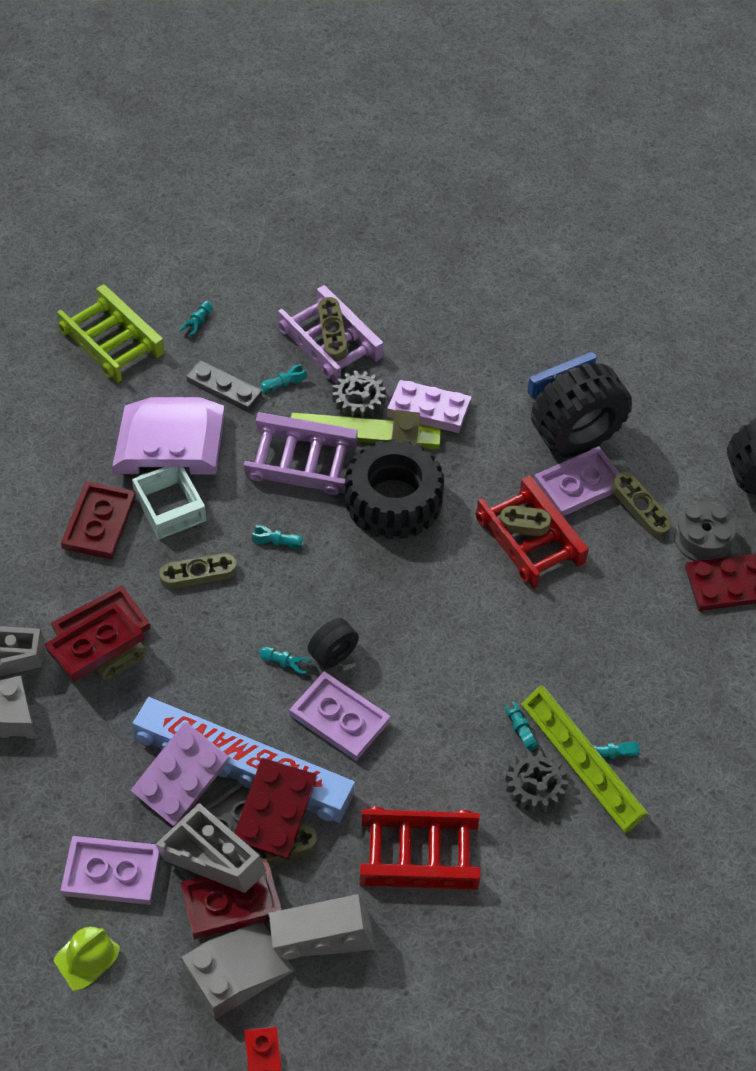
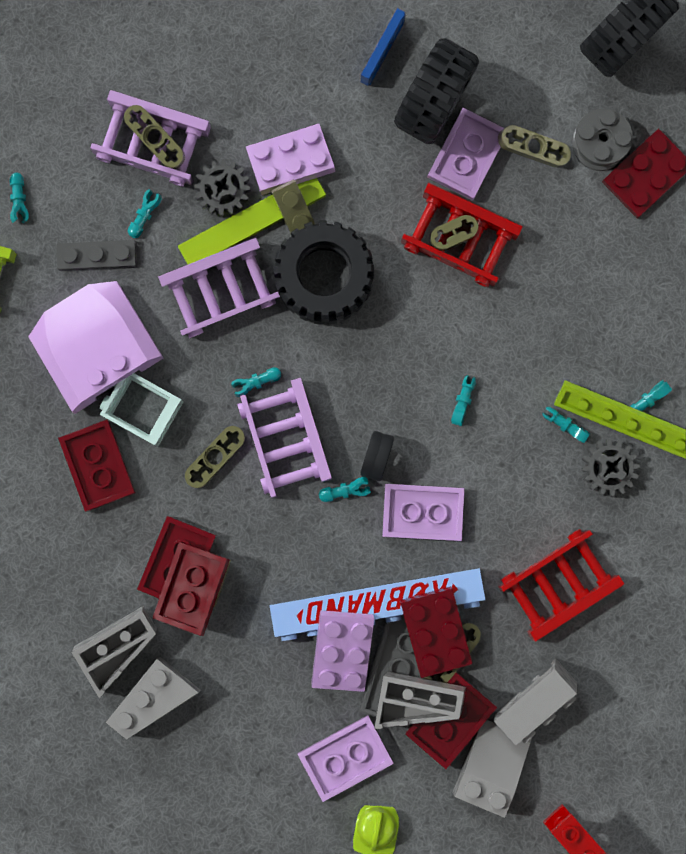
camera: 35 degrees left, 30 degrees up
(285, 606) = (309, 444): none -> lavender fence
(433, 659) = (463, 400): none -> teal piece

